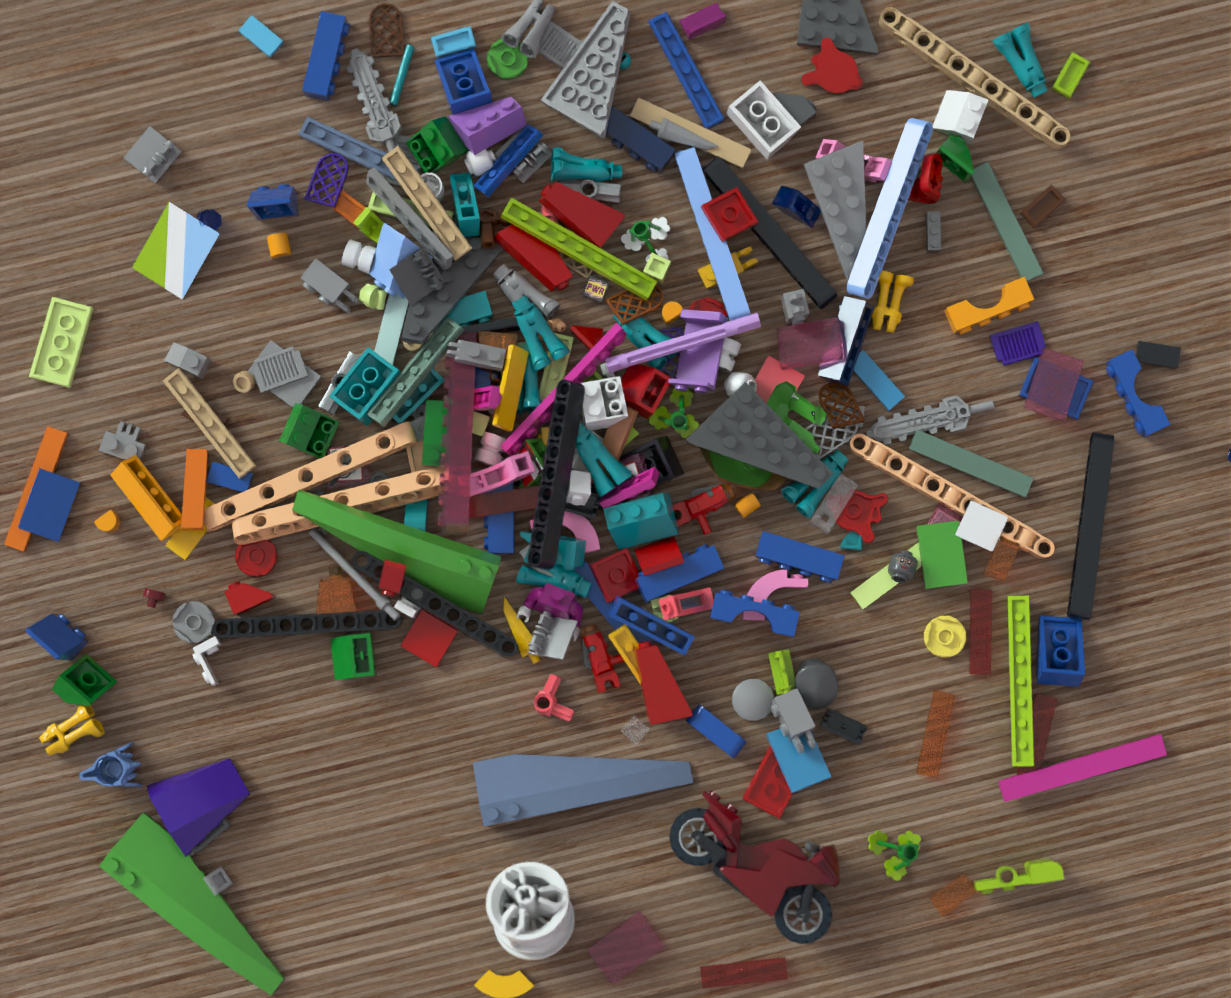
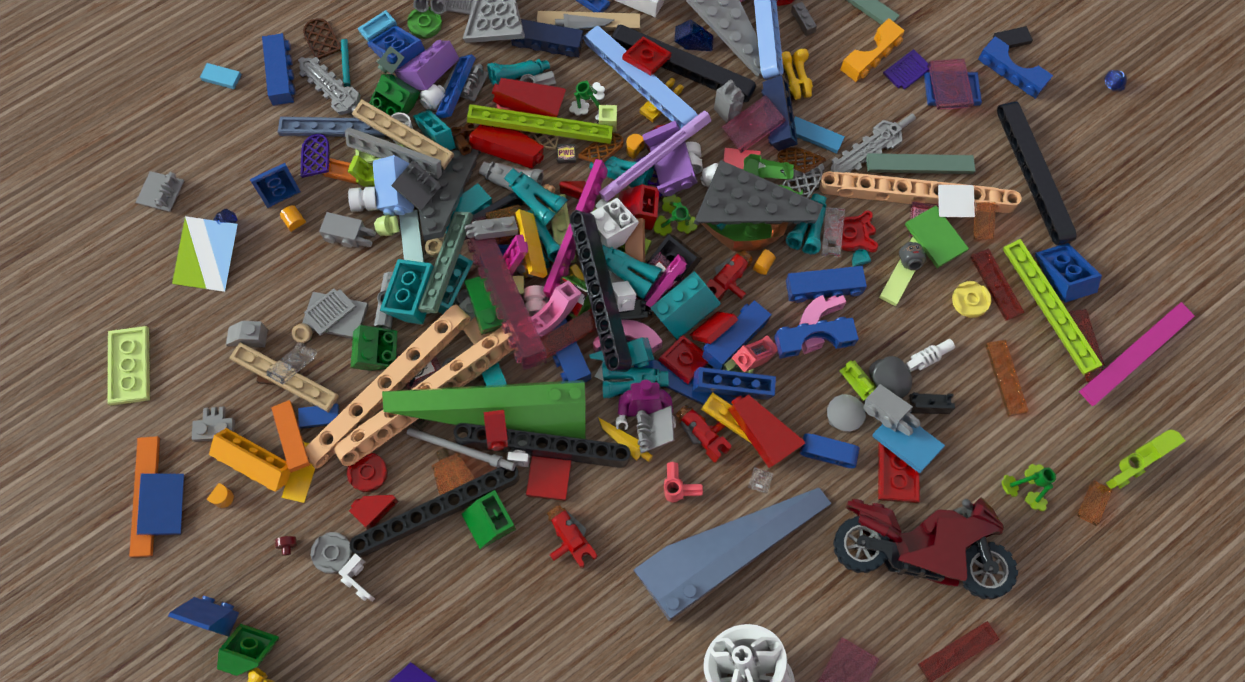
camera: 30 degrees left, 15 degrees down
(221, 413) = (291, 363): none -> clear plate
(427, 705) = (572, 535): none -> red piece
(441, 107) = (385, 66): none -> sand green bracket
(867, 678) = (929, 355): none -> white hinge

